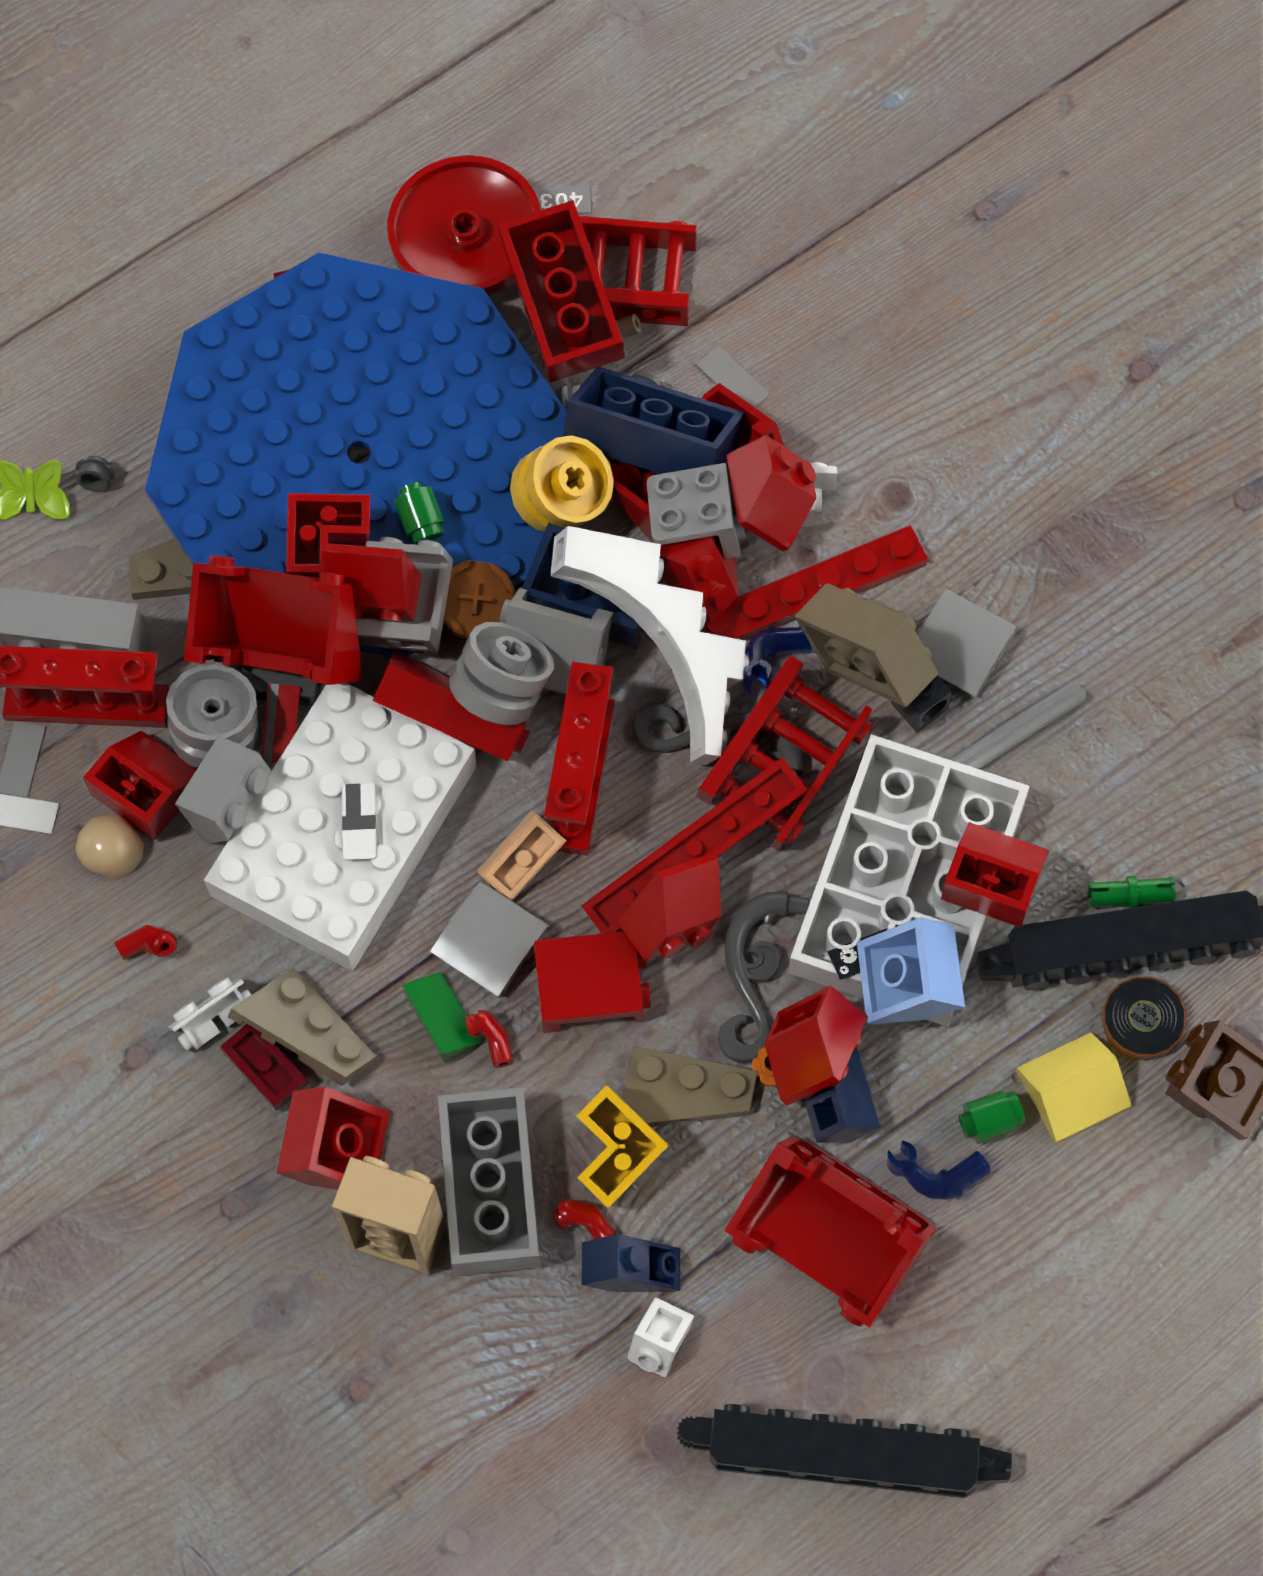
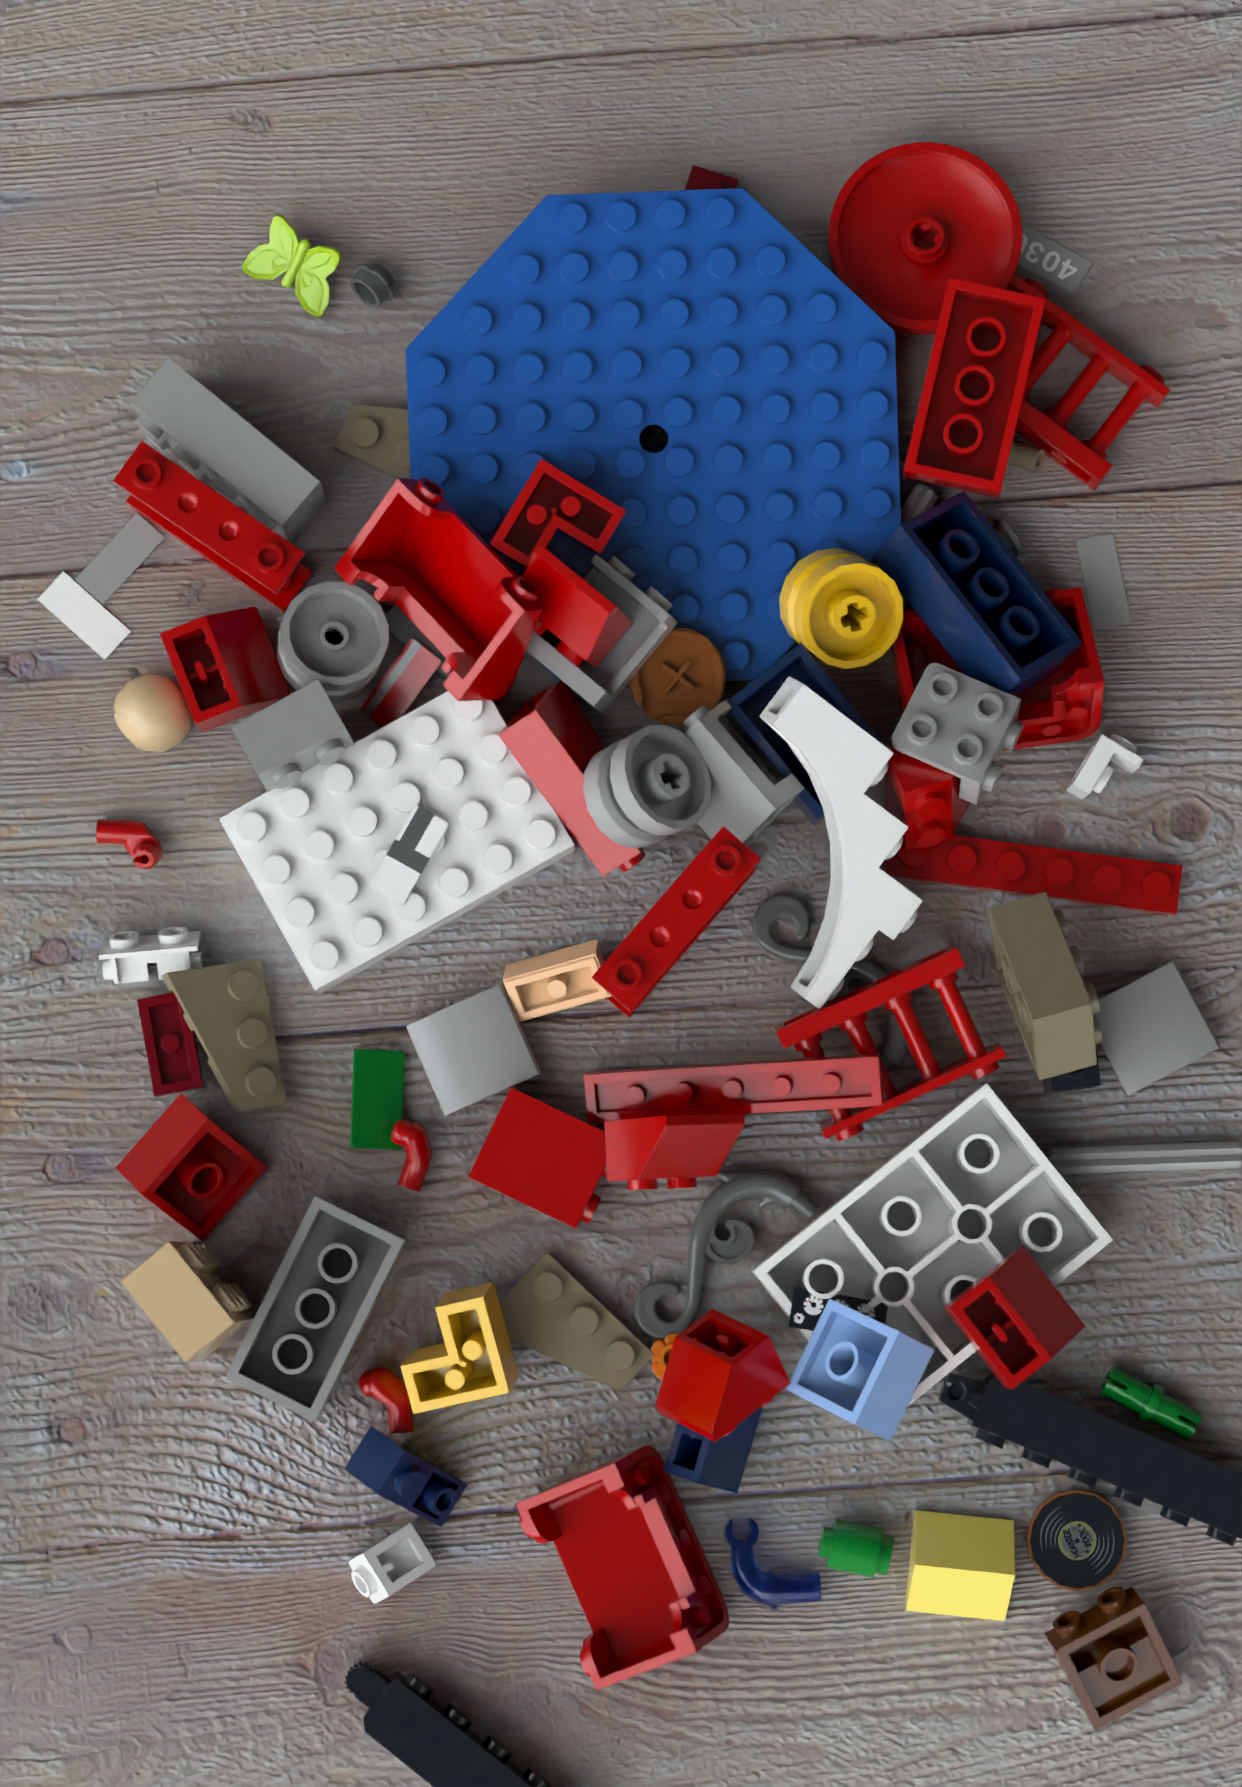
camera: 25 degrees right, 15 degrees up
(419, 512) = (673, 550): green brick -> none
(770, 643) = (946, 905): clear blue piece -> none
(771, 490) = (1051, 754): red slope -> none

